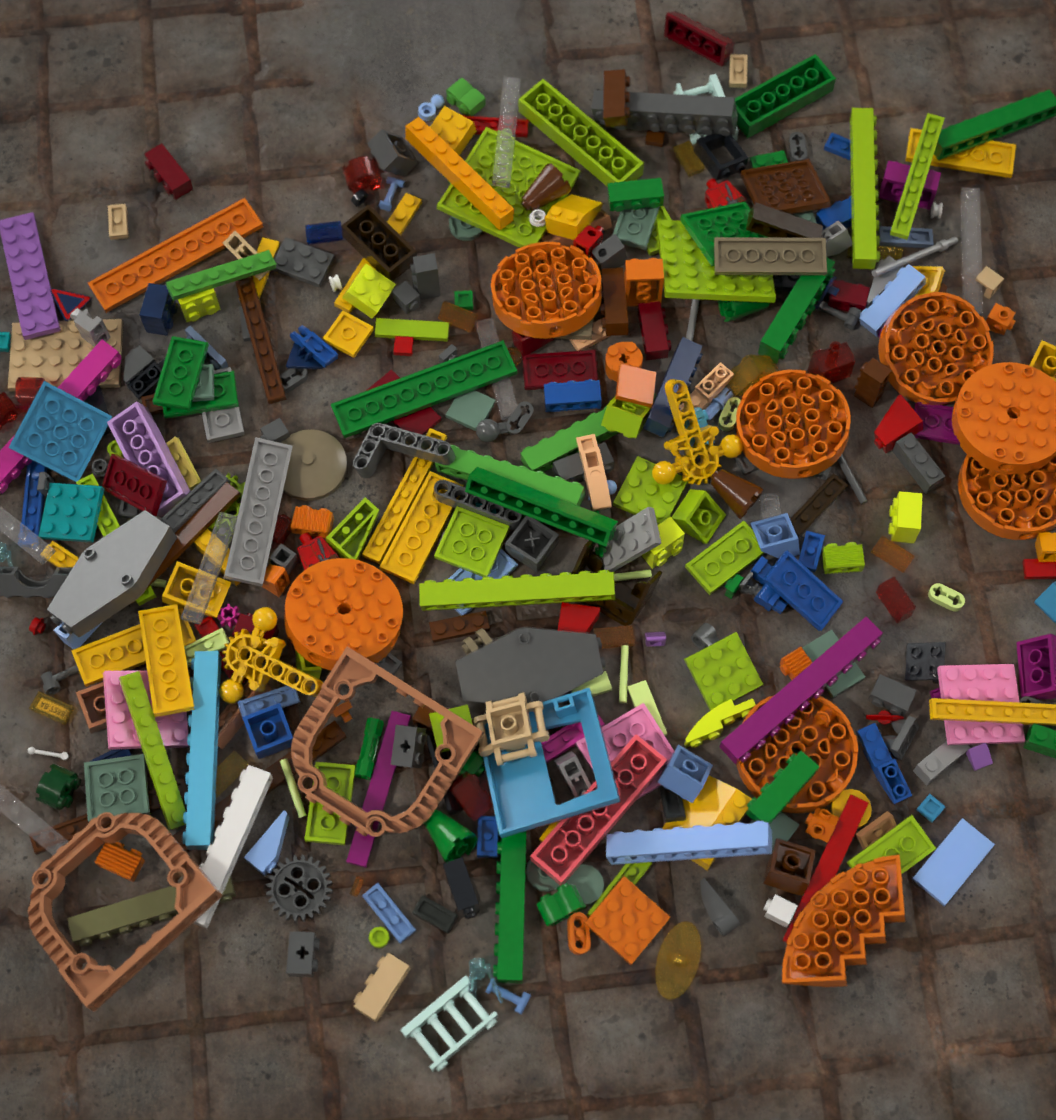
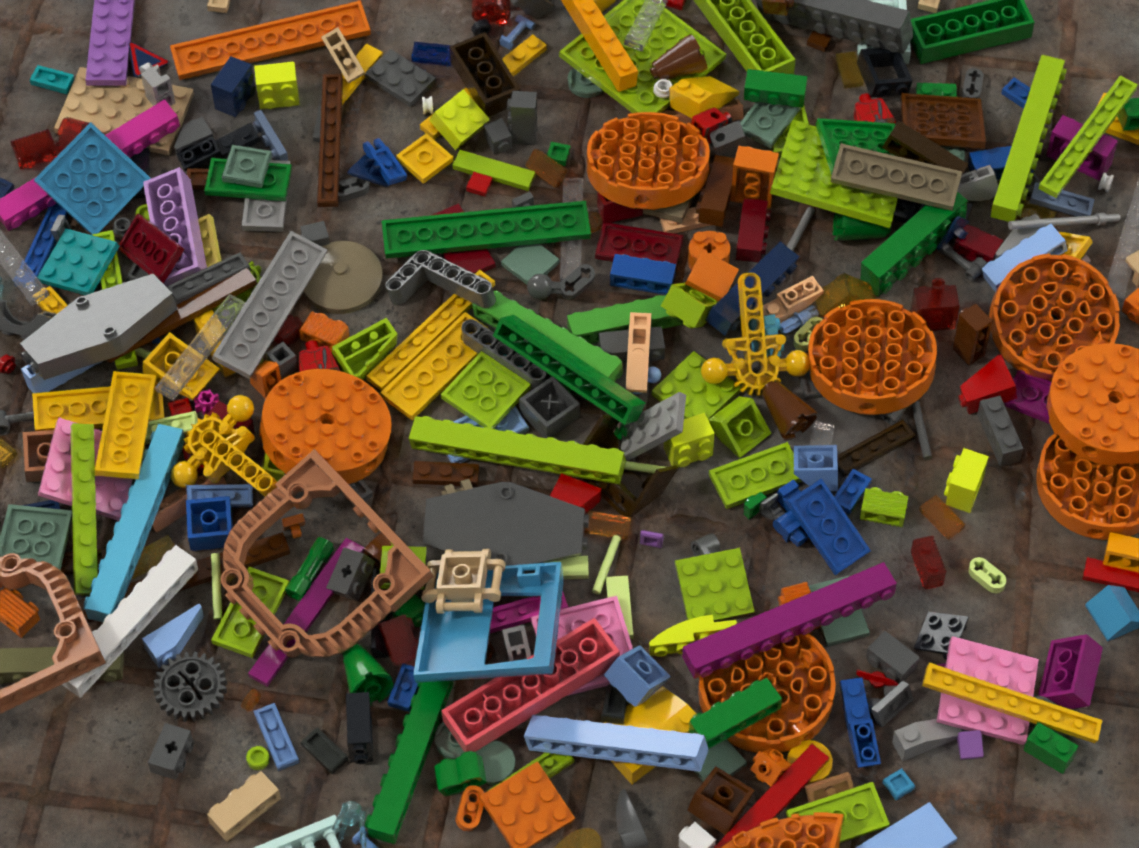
camera: 15 degrees right, 10 degrees down
(180, 373) = (234, 152): green tile -> none
(220, 275) = (307, 65): bright green plate -> none

